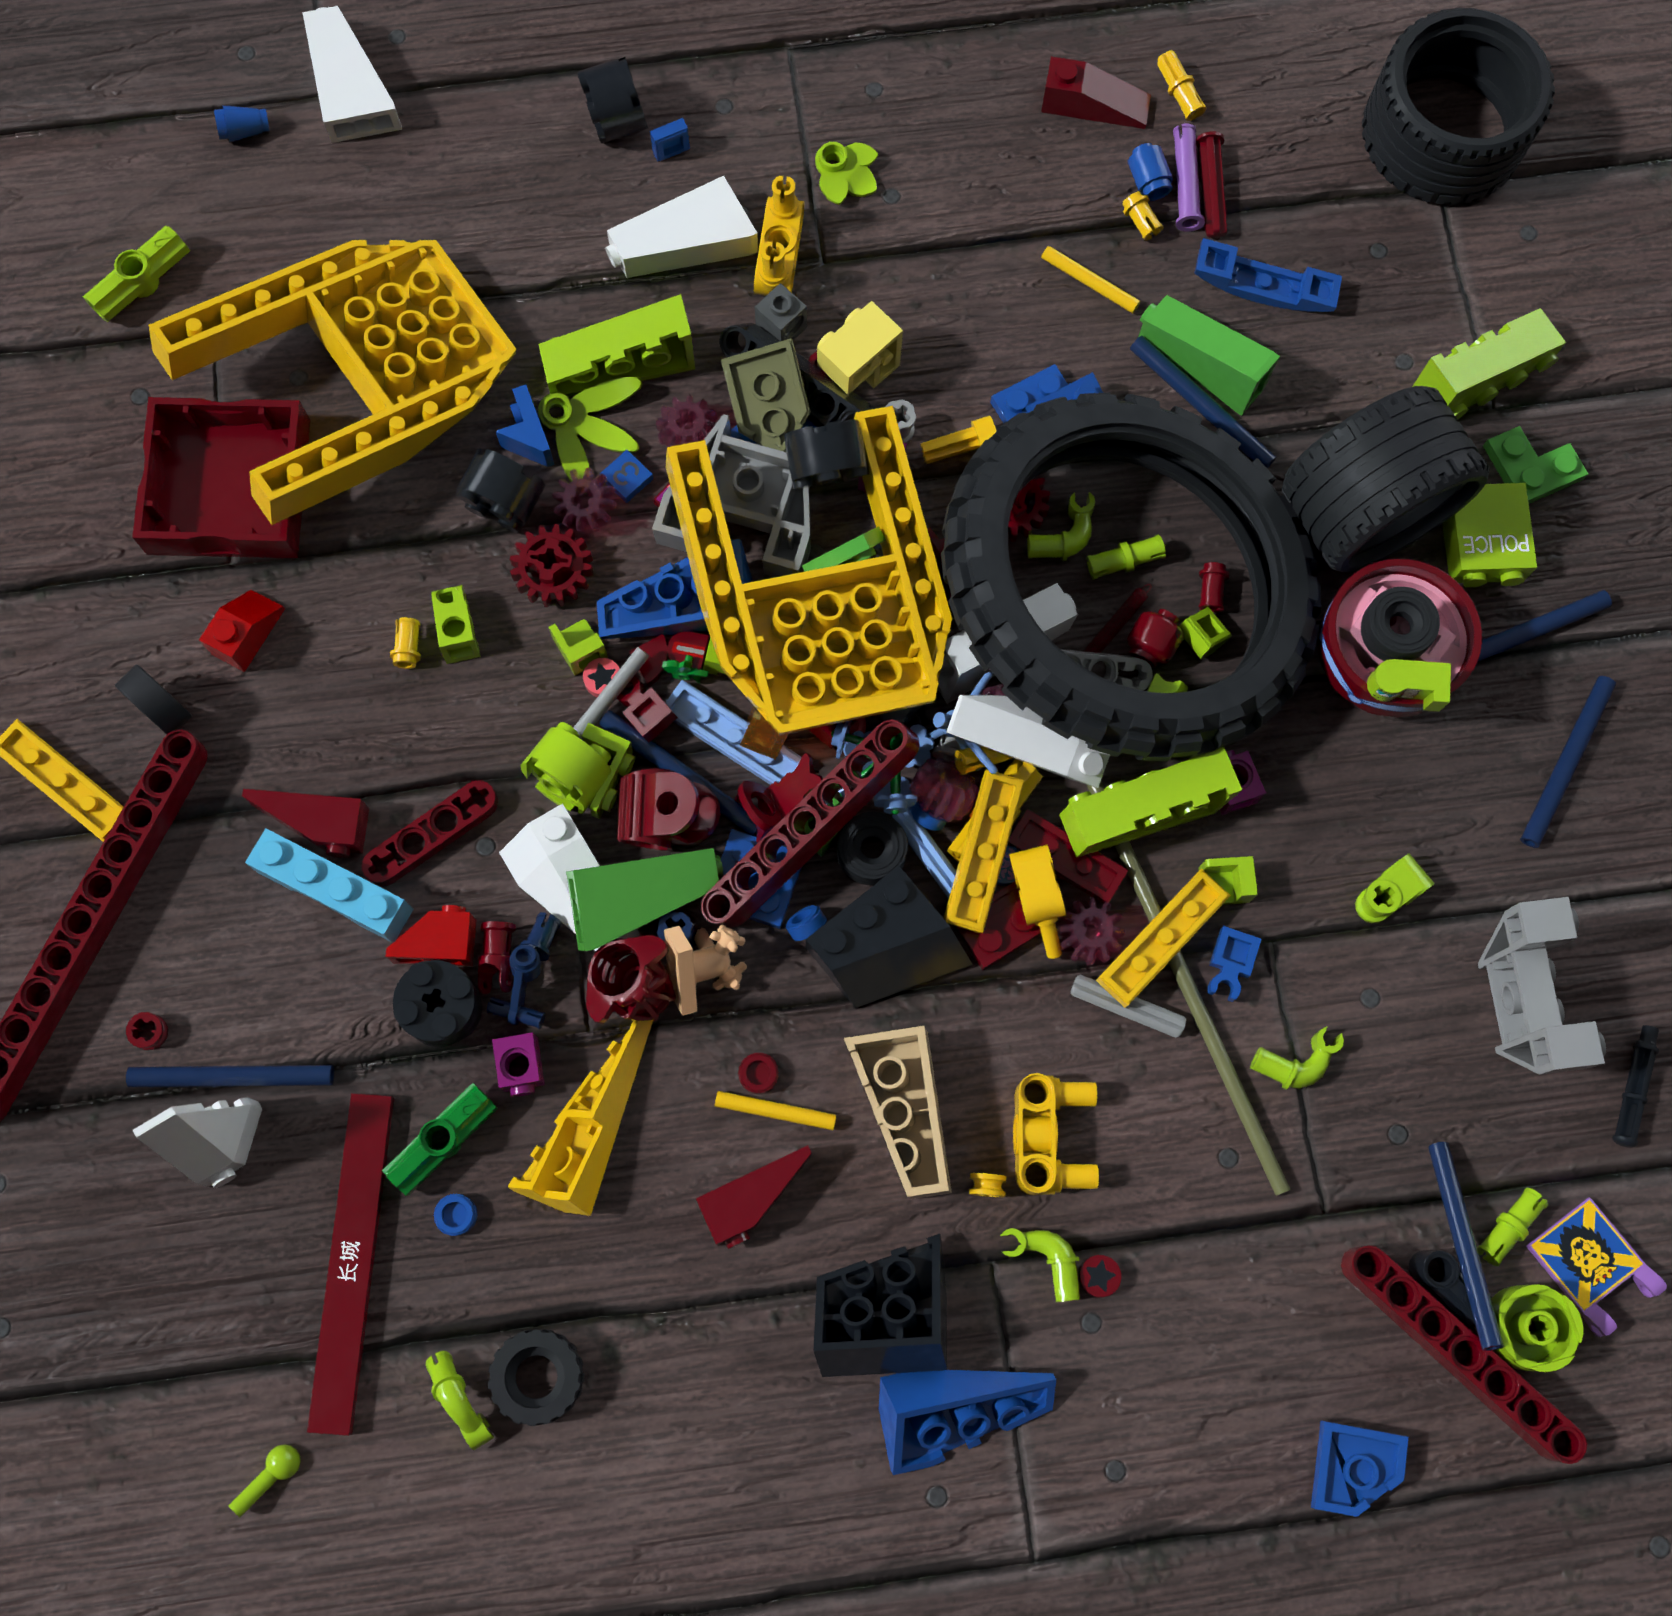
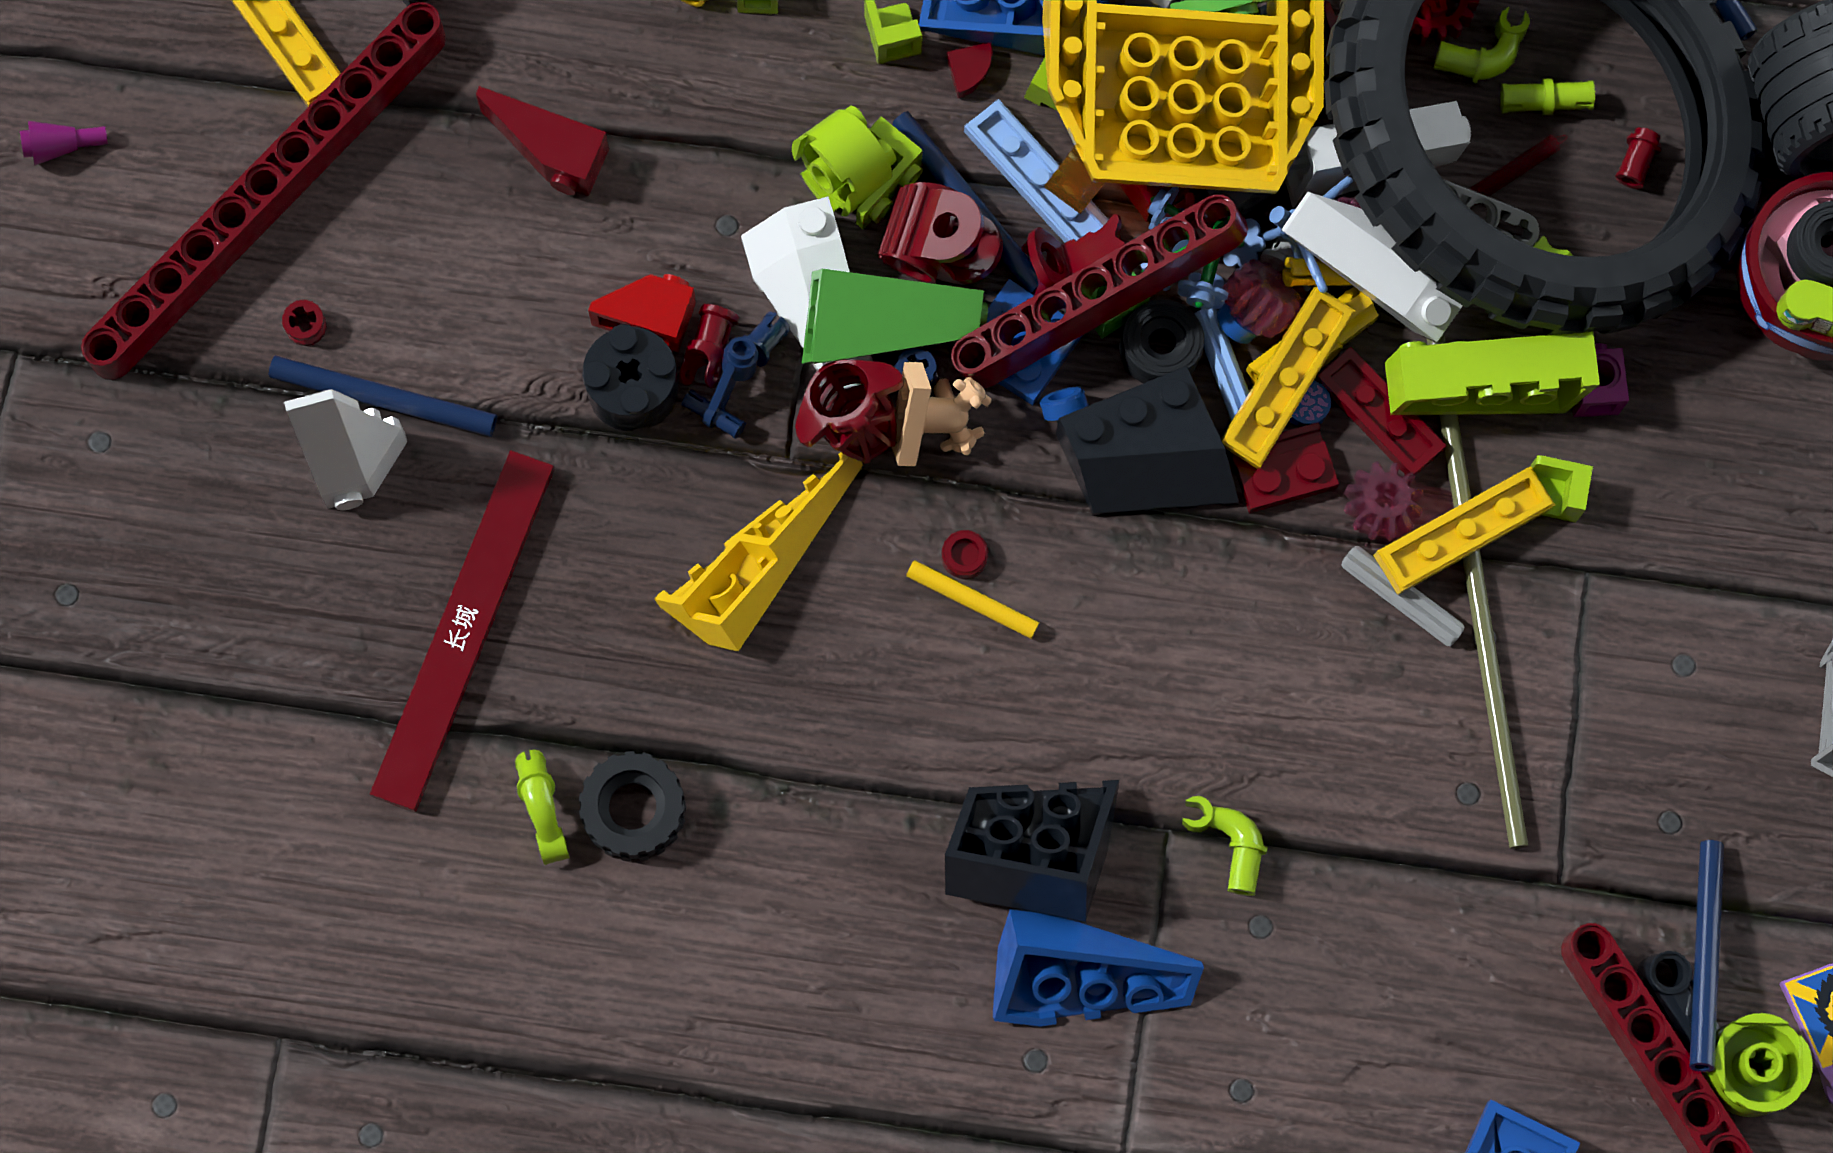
camera: 15 degrees right, 0 degrees up
(280, 1464) = (331, 820): lime bar -> none
(329, 885) = (565, 233): medium azure arch -> none
(420, 1159) = (568, 540): green piece -> none
(426, 827) = (667, 185): dark red beam -> none
(455, 1214) = (589, 612): blue tile -> none
(508, 1049) = (702, 449): magenta brick -> none
(599, 674) = (909, 73): coral tile -> none
(612, 690) = (919, 87): light grey bar -> none
(646, 710) = (948, 121): dark red plate -> none
(684, 669) = (1002, 88): green plant -> none
(689, 644) = (1013, 70): dark red tile -> none
(744, 1202) = (911, 685): dark red slope -> none
(904, 1099) = (1120, 616): tan wedge -> none
(987, 1185) = (1187, 743): yellow bush -> none
(1037, 1135) = (1258, 705): yellow piece -> none
(1039, 894) = (1336, 442): yellow beam -> none
(1099, 1276) = (1284, 877): dark red tile -> none
(1155, 637) = (1554, 195): dark red head -> none
(1204, 632) = (1612, 206): lime brick -> none
(1234, 957) = (1539, 575): blue plate -> none
(1295, 1073) = (1575, 722): lime piece -> none
(1395, 888) = (1749, 549): lime piece -> none
(1512, 1226) = (1769, 955): lime pin -> none

